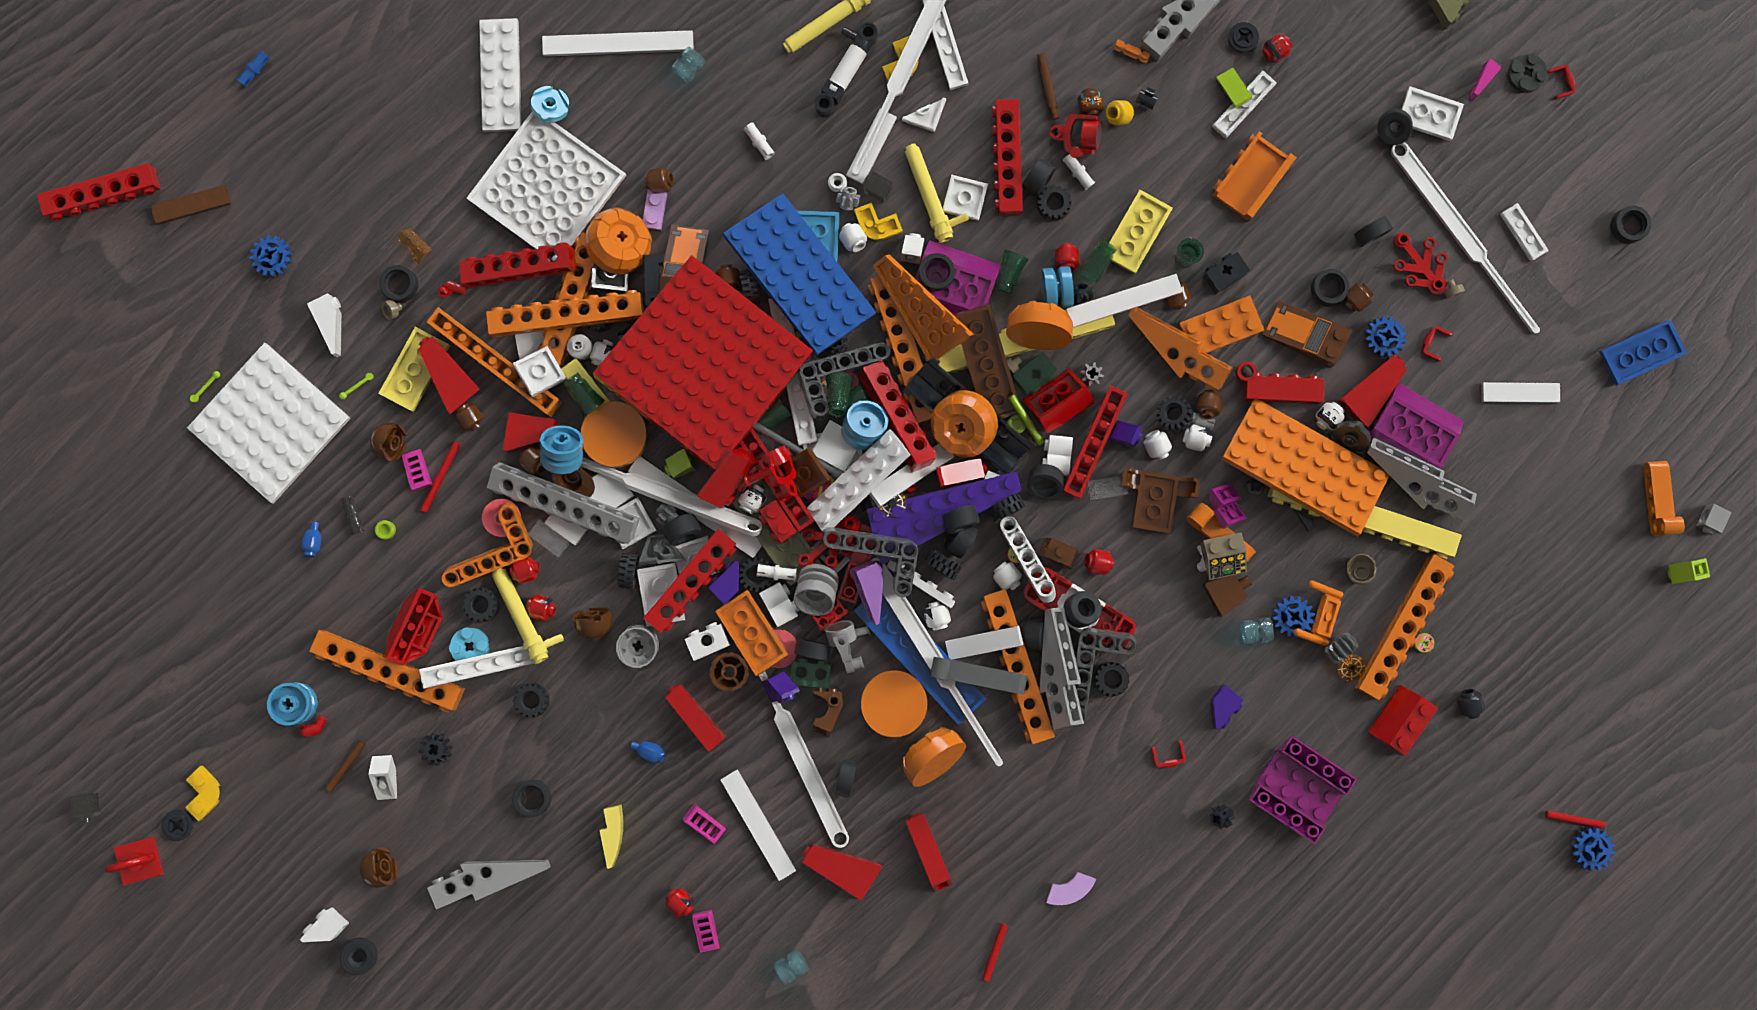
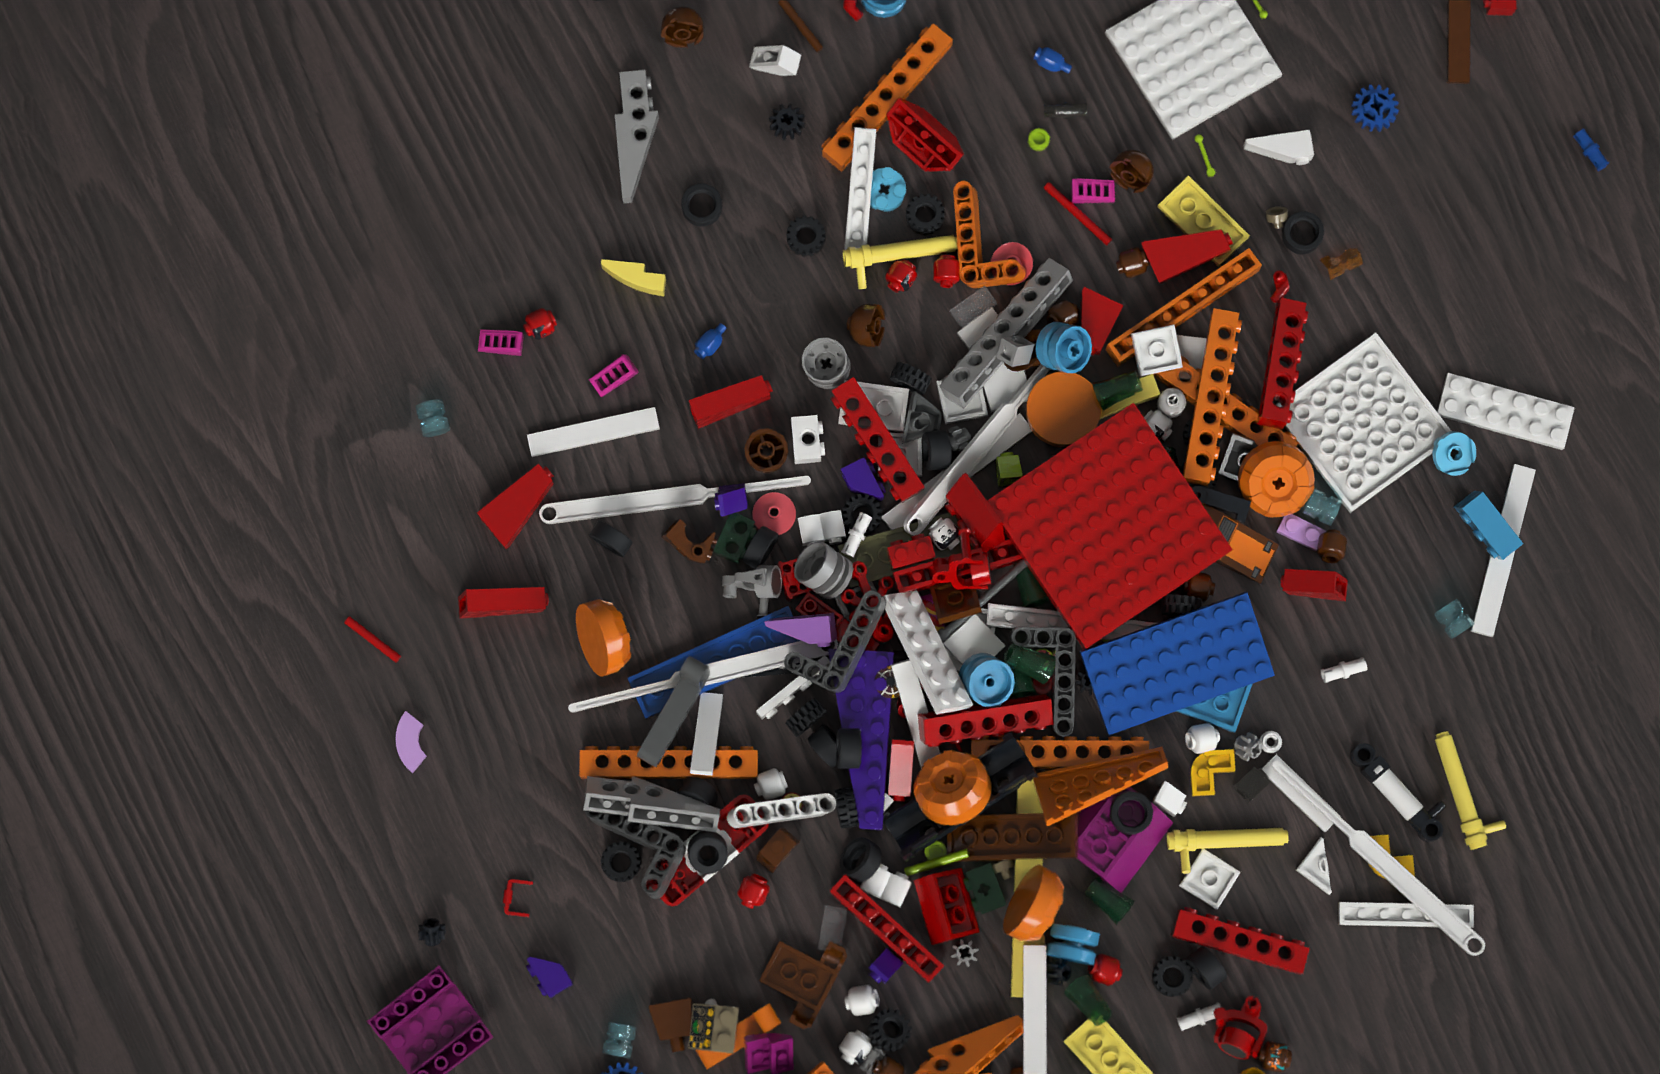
camera: 105 degrees right, 5 degrees down
(577, 488) = (1015, 350): none -> light grey brick
(601, 58) = (1488, 525): none -> dark azure wedge
(629, 196) = (1322, 507): none -> clear light blue wheel
(696, 185) = (1315, 584): none -> red slope
(752, 633) = (800, 488): orange plate -> none
(894, 703) = (673, 615): orange piece -> none
(937, 615) = (753, 694): white head -> none
(1047, 85) = (1309, 1015): reddish brown piece -> none

